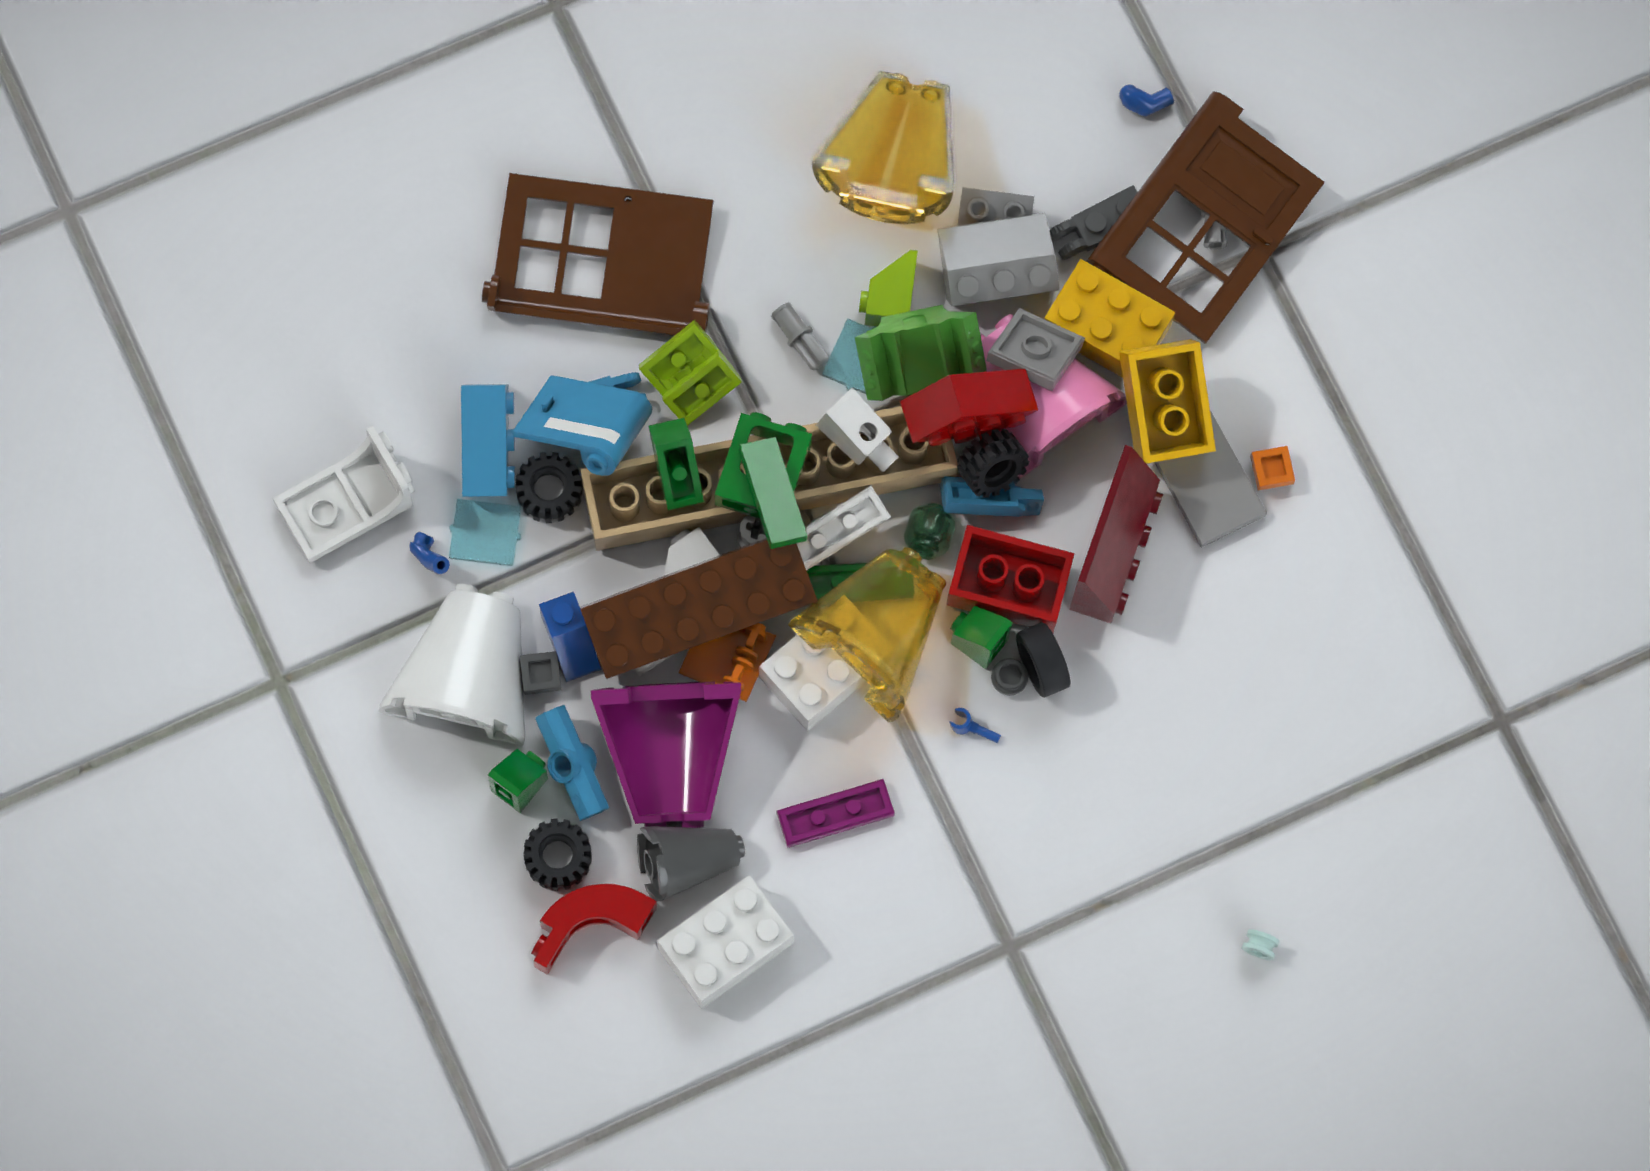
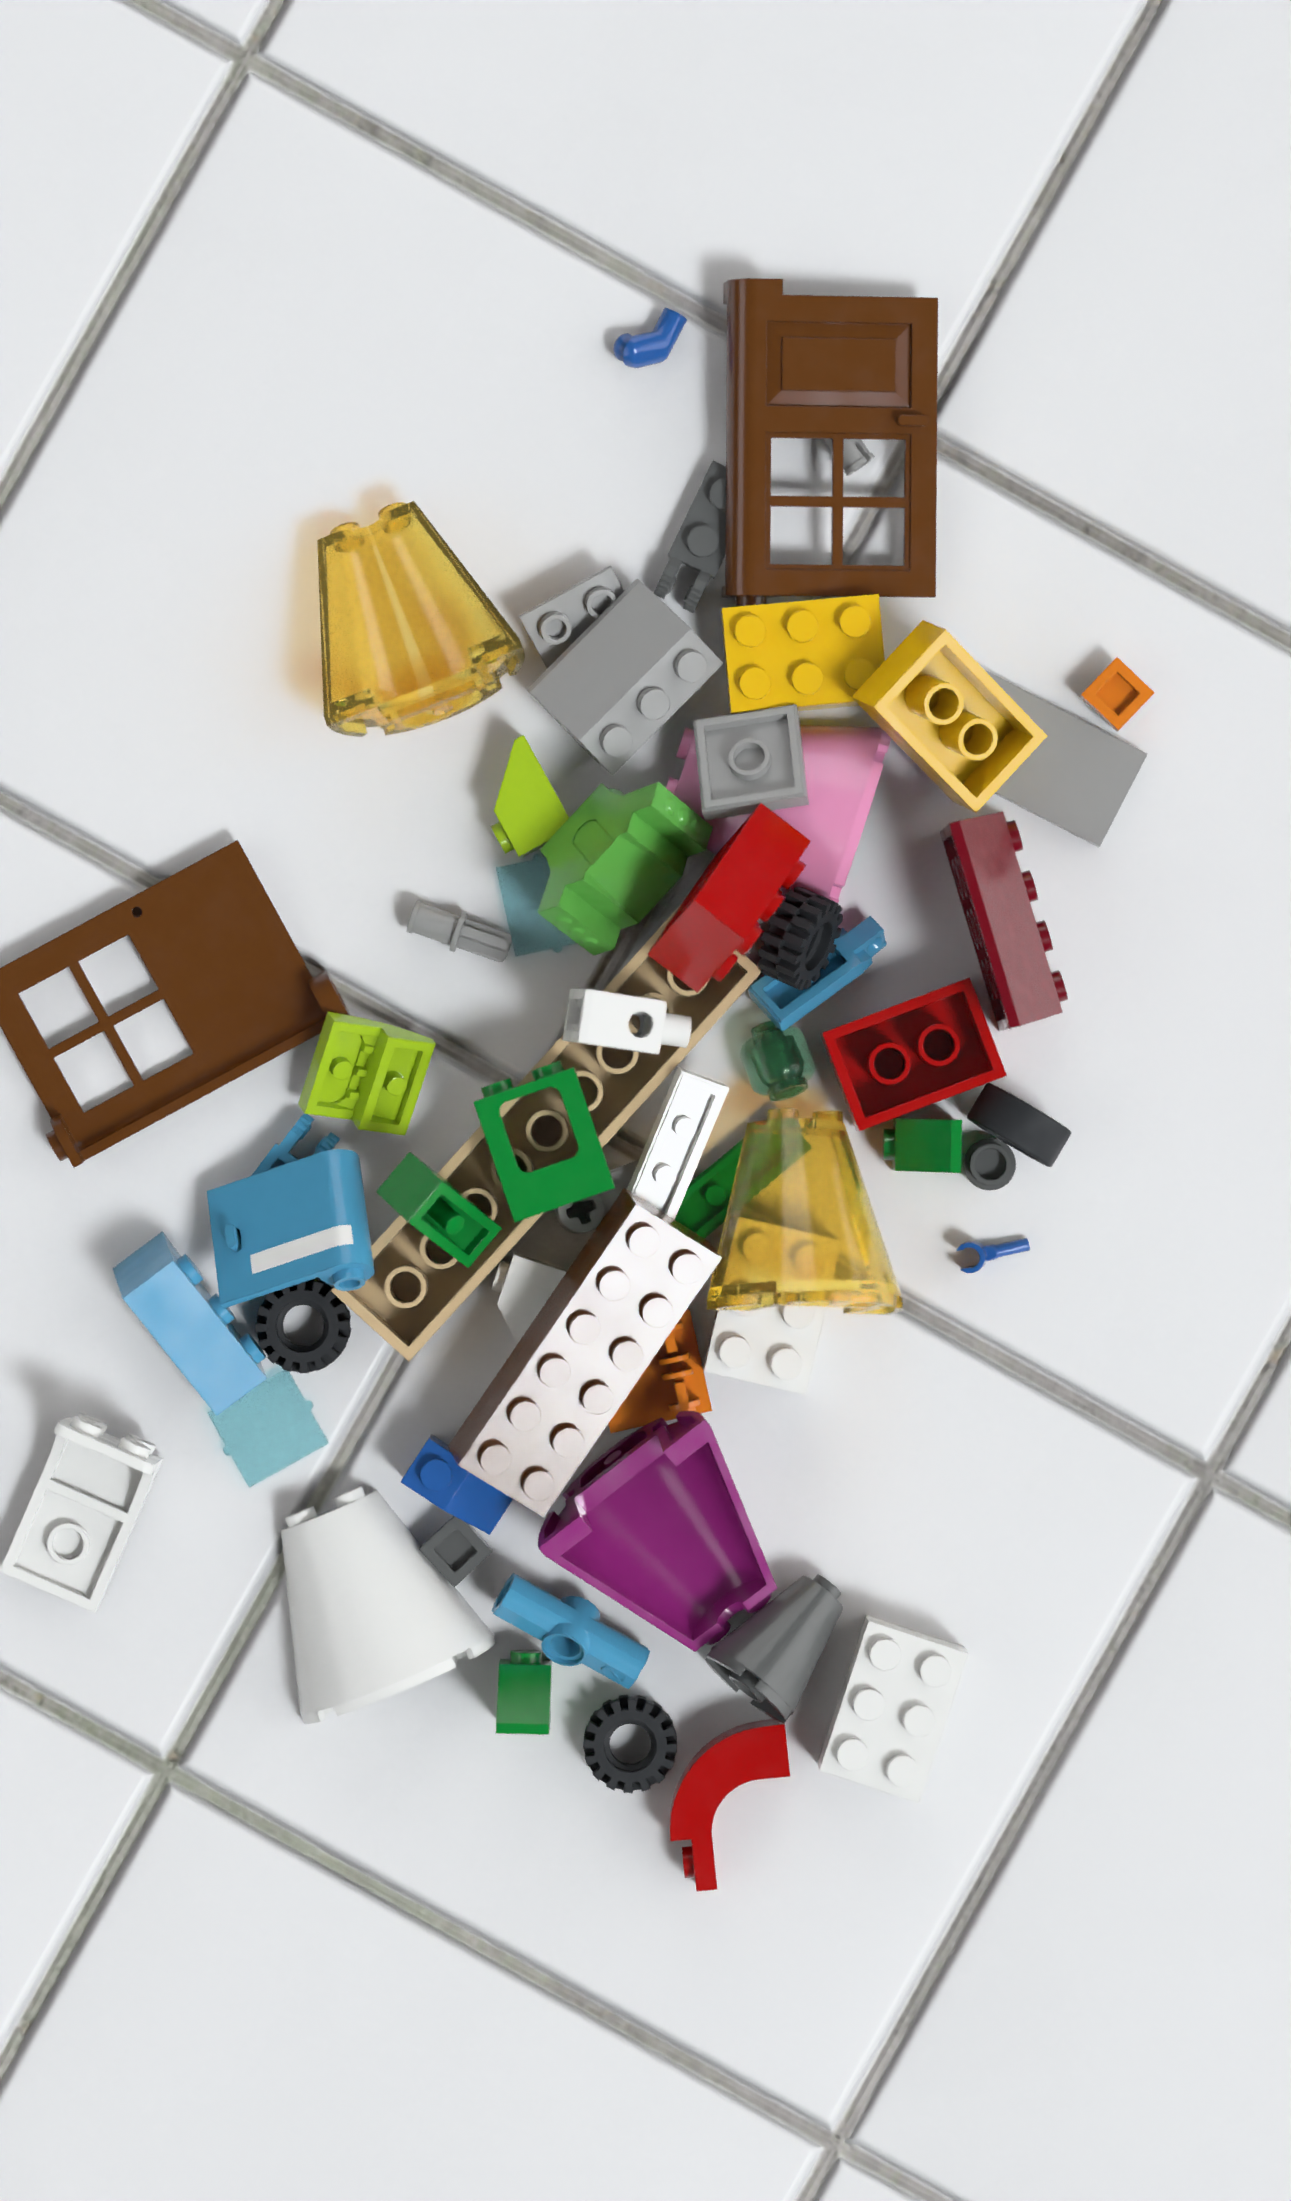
camera: 30 degrees left, 15 degrees up
(430, 560) = (225, 1507): blue arm -> none
(773, 493) = (582, 1176): tile -> none
(835, 813) = (905, 1466): magenta tile -> none

